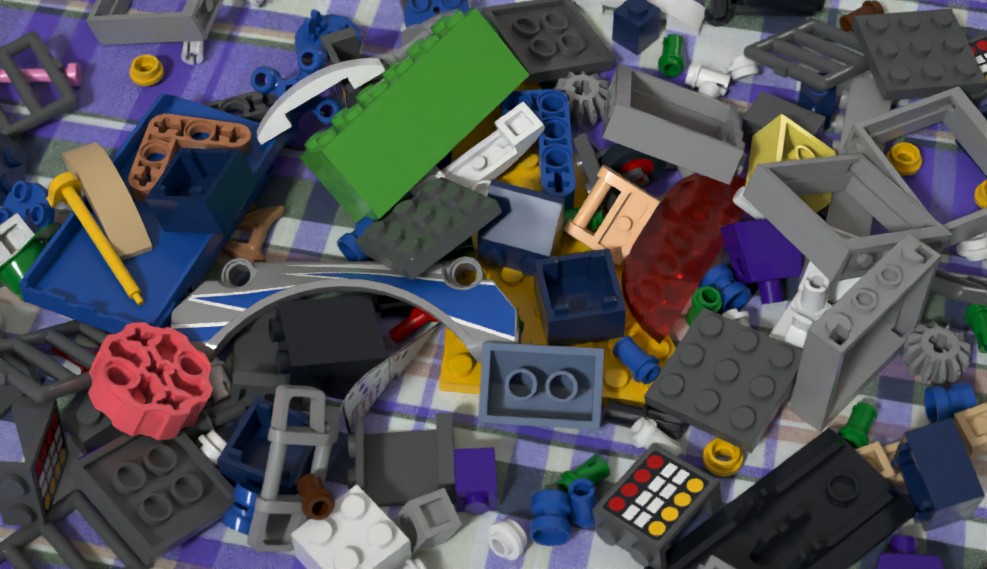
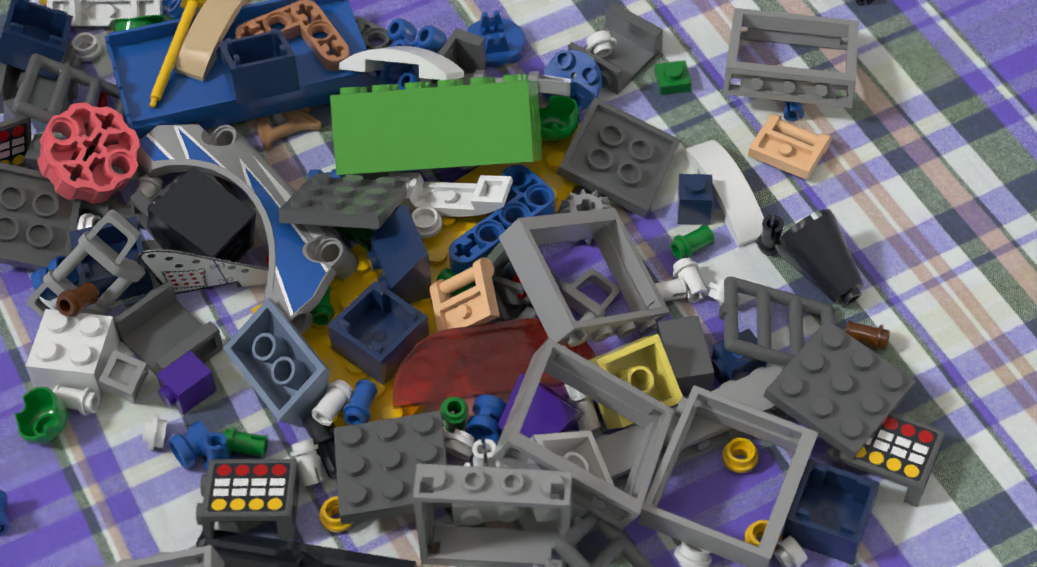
camera: 50 degrees right, 0 degrees up
(618, 380) = (337, 395): none -> white pin

